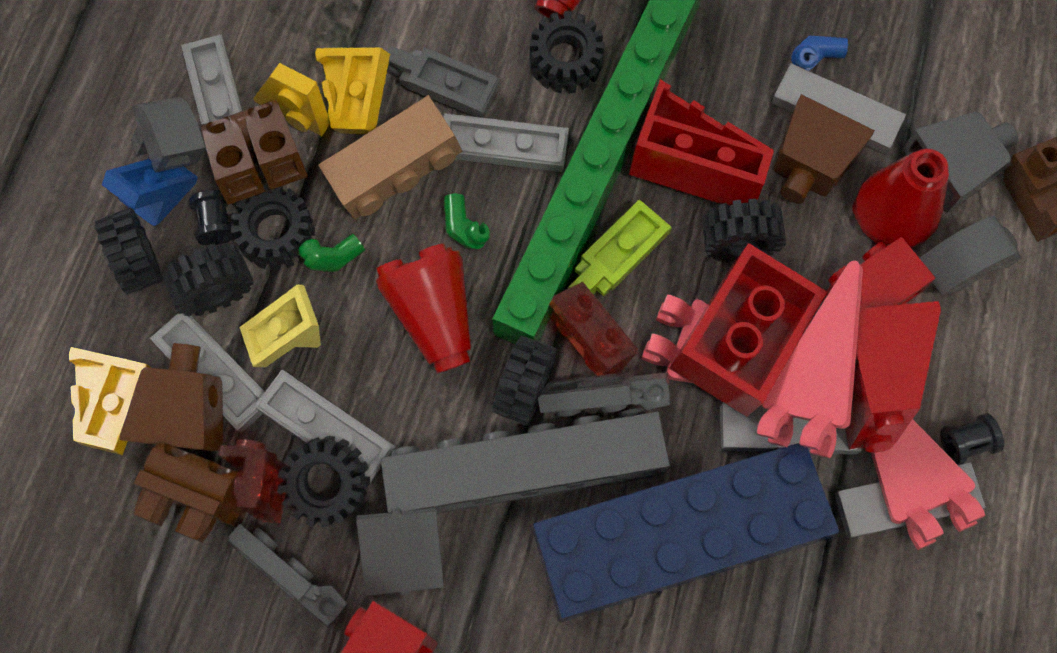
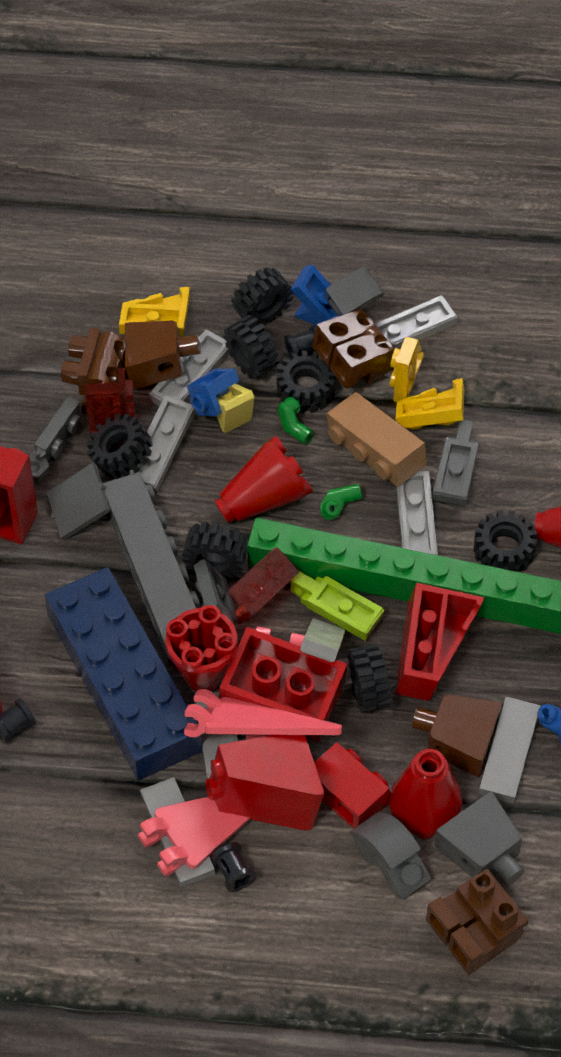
camera: 80 degrees right, 15 degrees down
(270, 339) = (209, 387): none -> blue bracket
(697, 268) = (322, 640): none -> light grey tile
(707, 409) = (201, 646): none -> red cone

